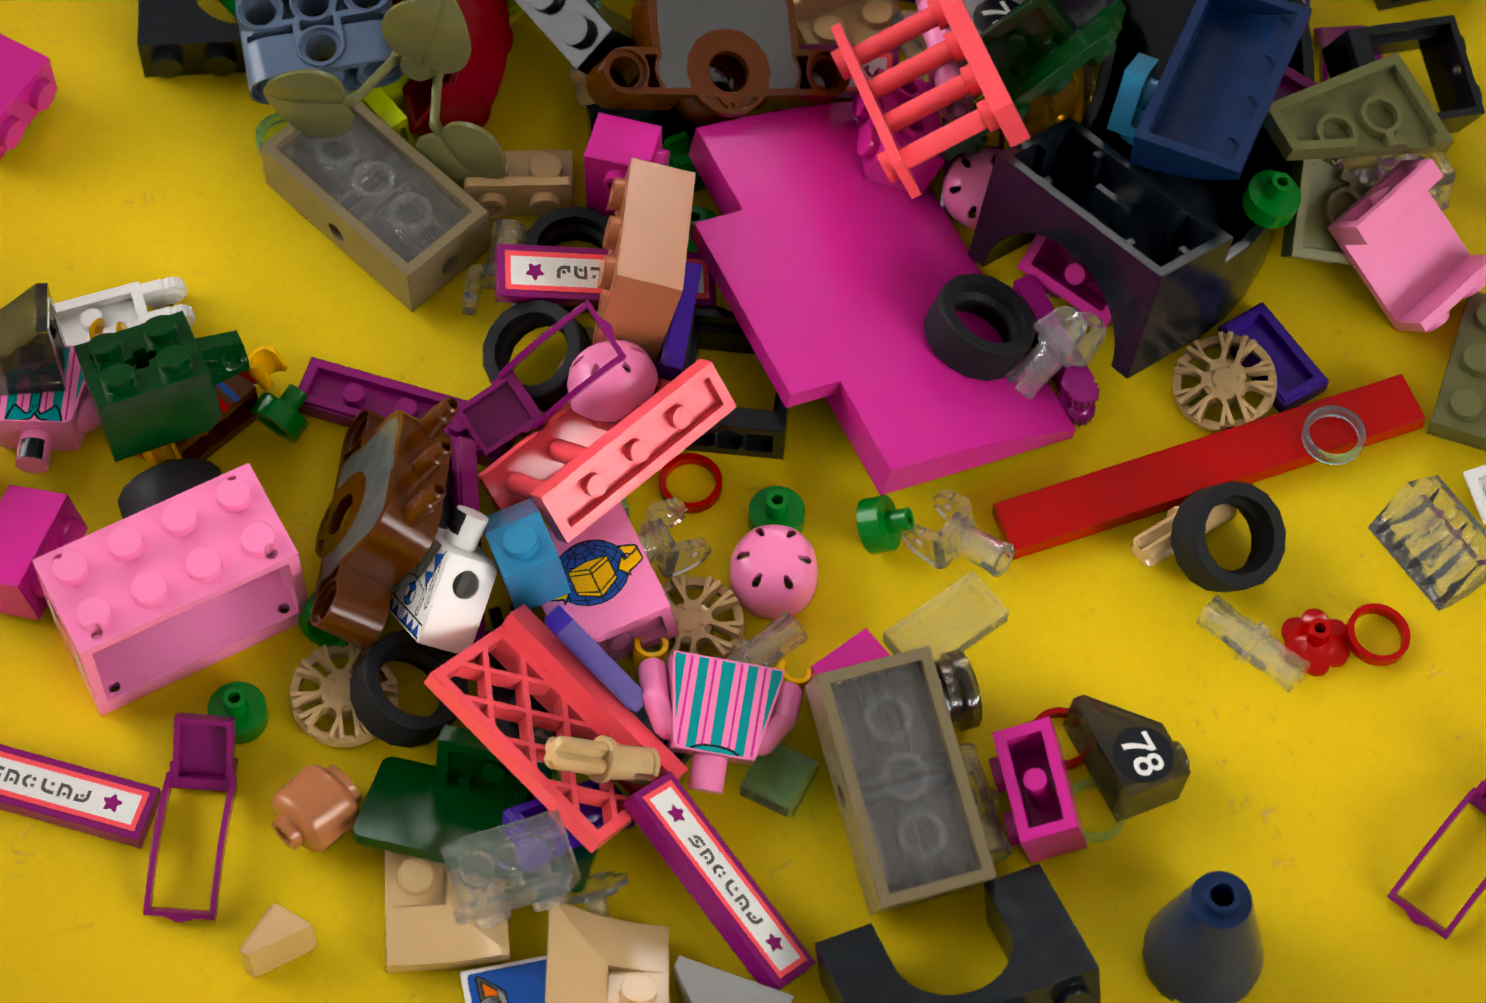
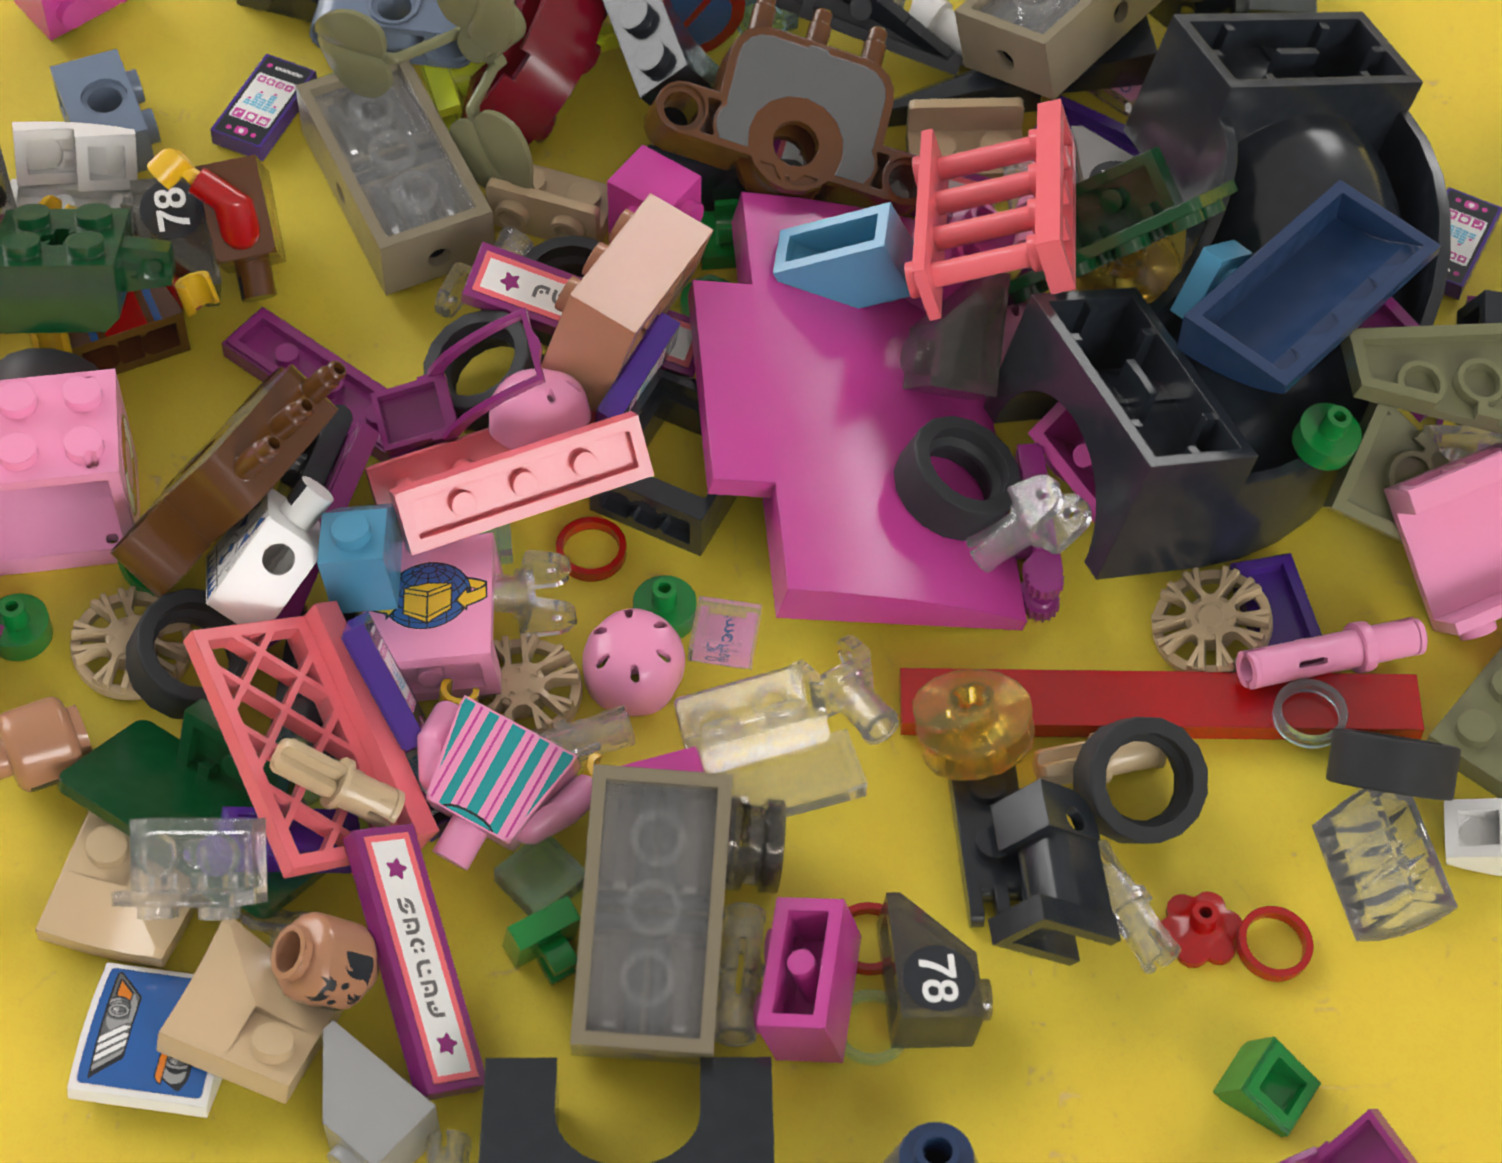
camera: 20 degrees right, 5 degrees down
(93, 267) = (73, 153): none -> white slope
(94, 249) = (103, 93): none -> sand blue brick
(212, 304) = (175, 218): none -> slope
(220, 169) = (261, 108): none -> tile
(265, 283) = (238, 214): none -> torso
(282, 413) = (203, 350): green tile -> none
(651, 909) = (325, 961): none -> nougat head
(811, 829) = (546, 938): none -> green tile
(814, 160) = (848, 257): none -> dark azure slope
(832, 519) = (725, 632): none -> clear tile
(882, 524) = (766, 646): green tile -> none
(896, 590) = (750, 720): none -> clear bracket
(944, 214) = (964, 347): none -> clear smoke slope
(1078, 533) = (973, 724): none -> clear yellow piece
(1125, 625) = (984, 870): none -> black hinge
(1198, 634) = (1058, 872): none -> black piece
(1348, 368) = (1354, 648): none -> bright pink pin
(1417, 750) = (1268, 1085): none -> green slope
(1419, 458) = (1393, 764): none -> black tyre

